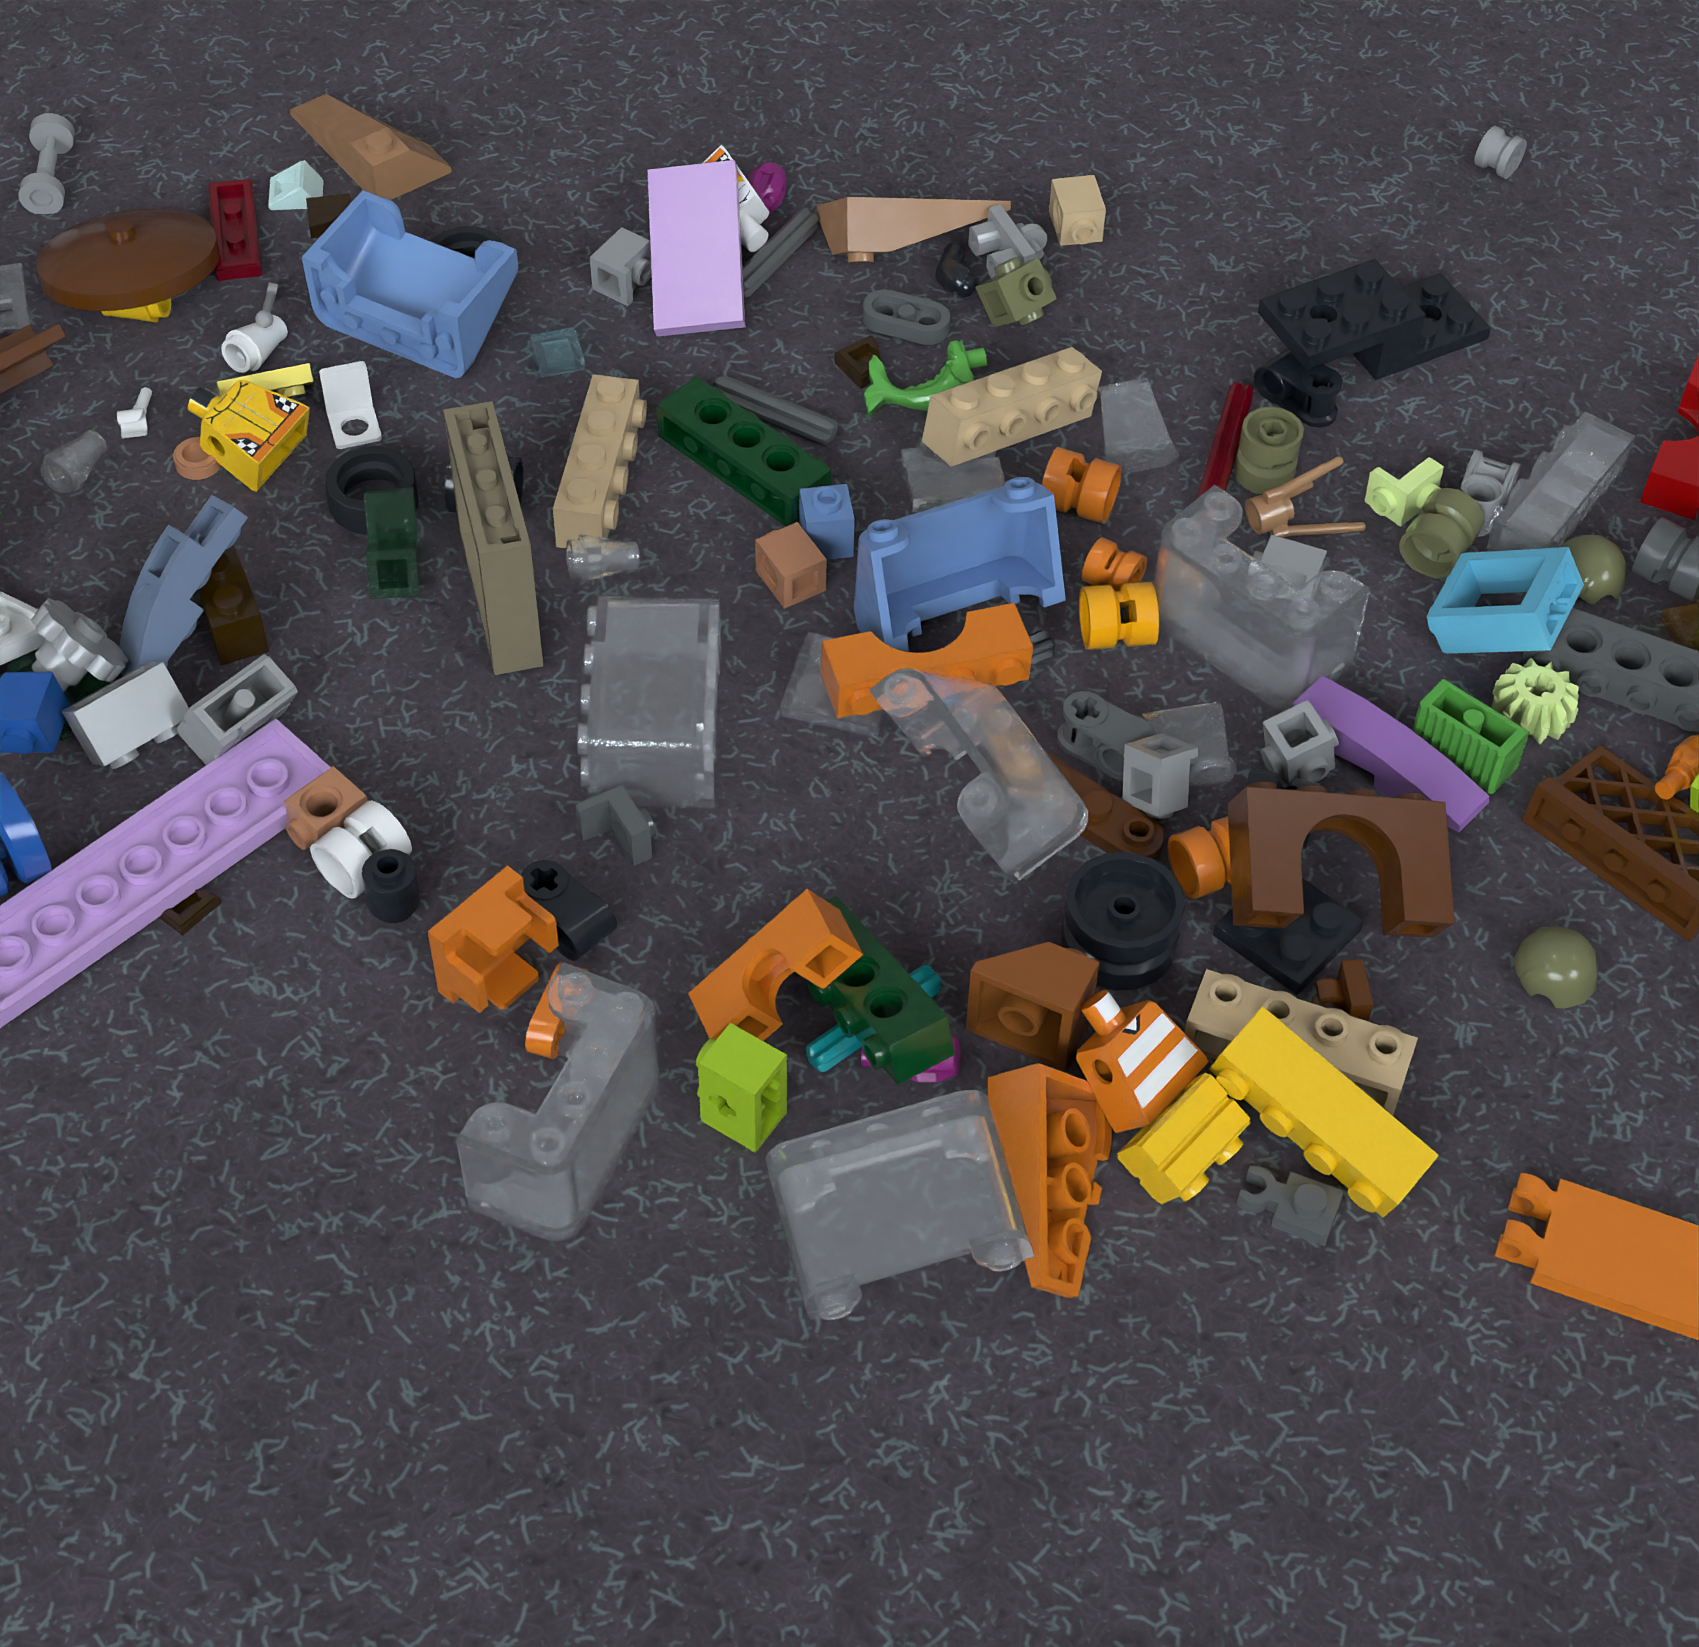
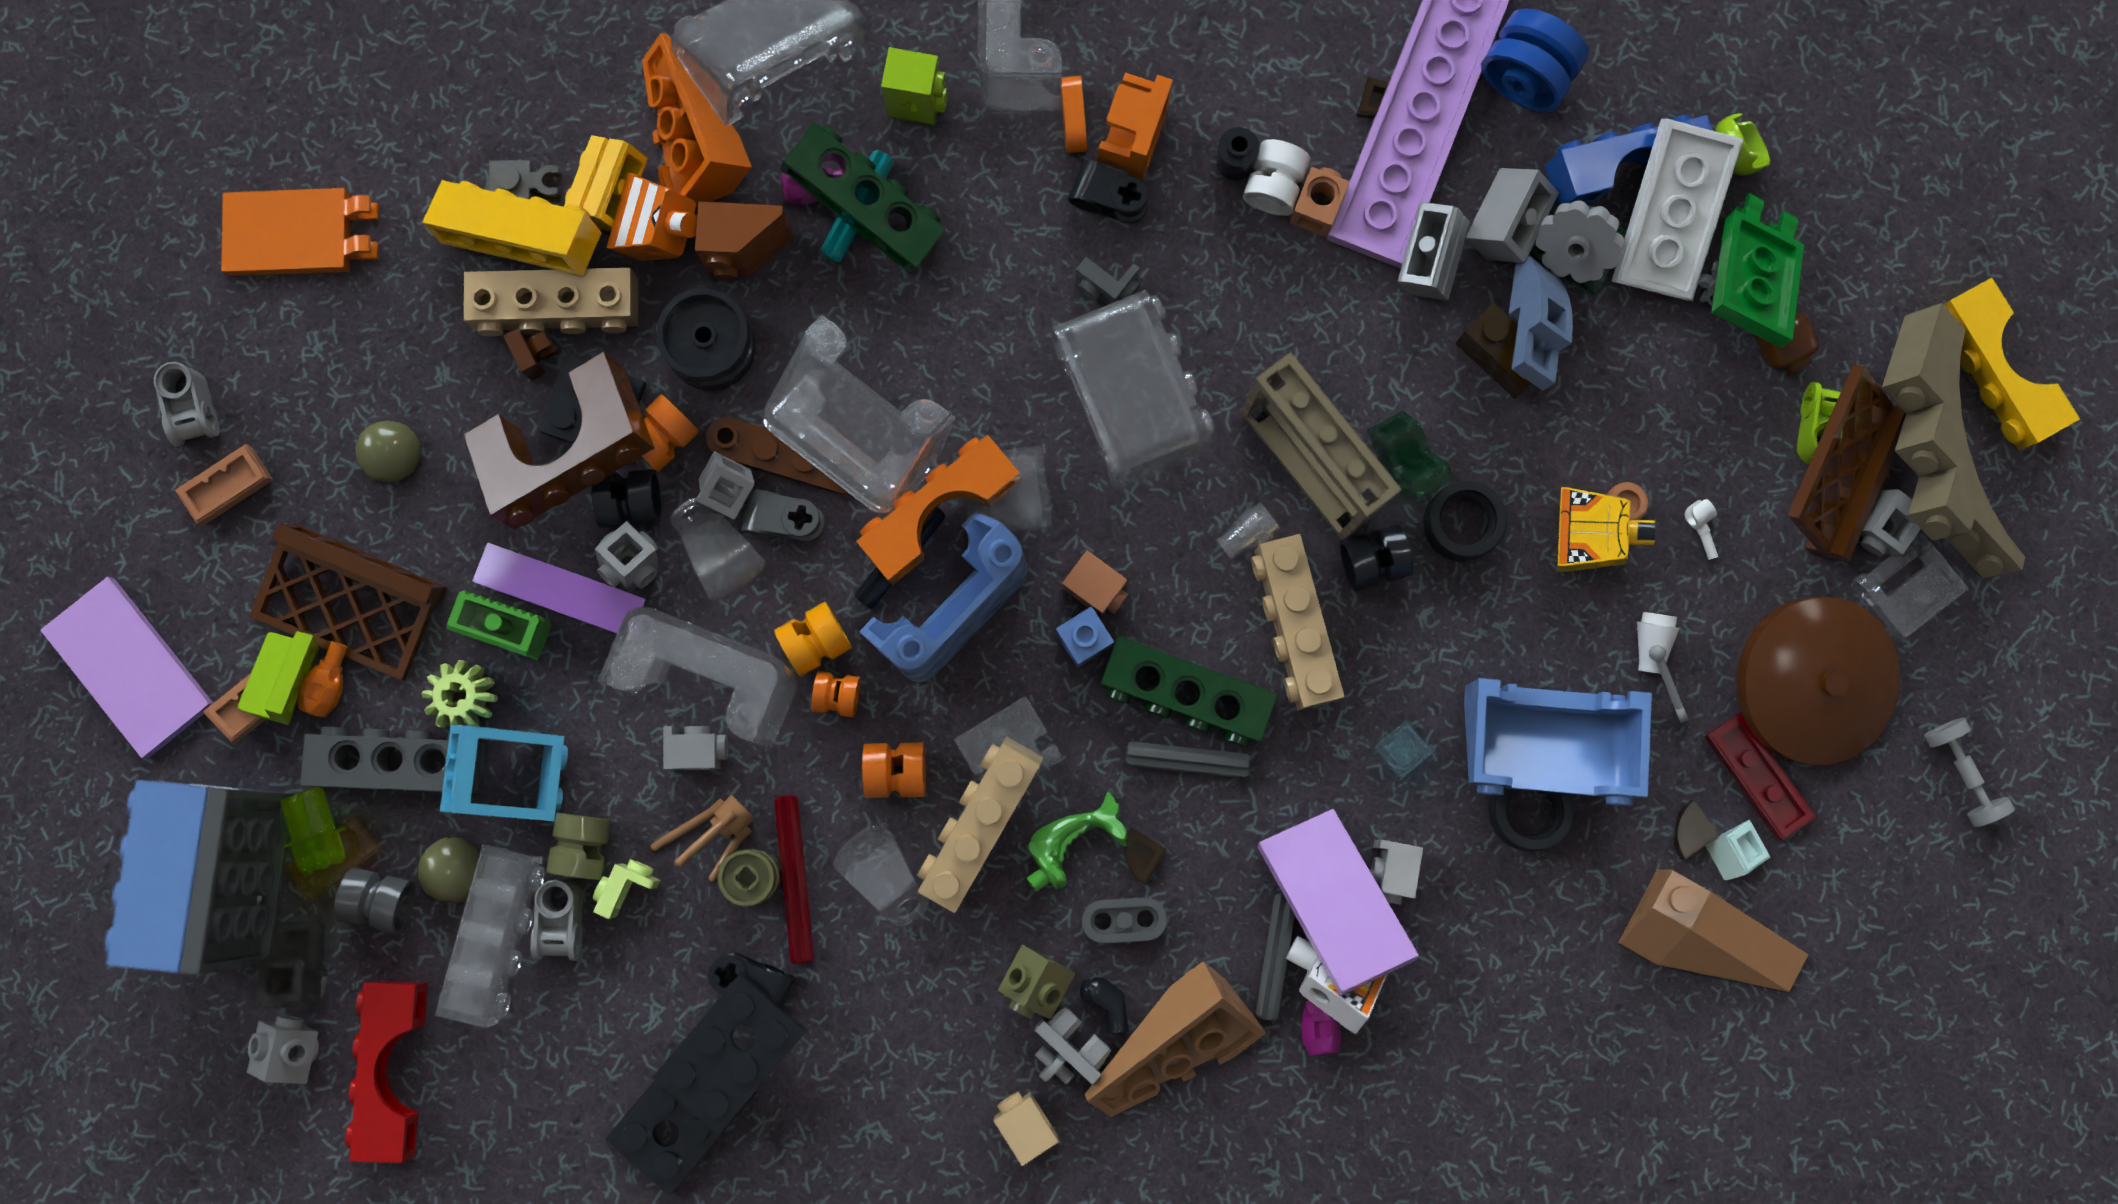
camera: 155 degrees right, 30 degrees up
(71, 463) = (1716, 448): clear cone -> none
(284, 381) = (1618, 595): light yellow plate -> none
(349, 398) = (1542, 609): white bracket -> none
(801, 939) = (912, 182): orange arch -> none

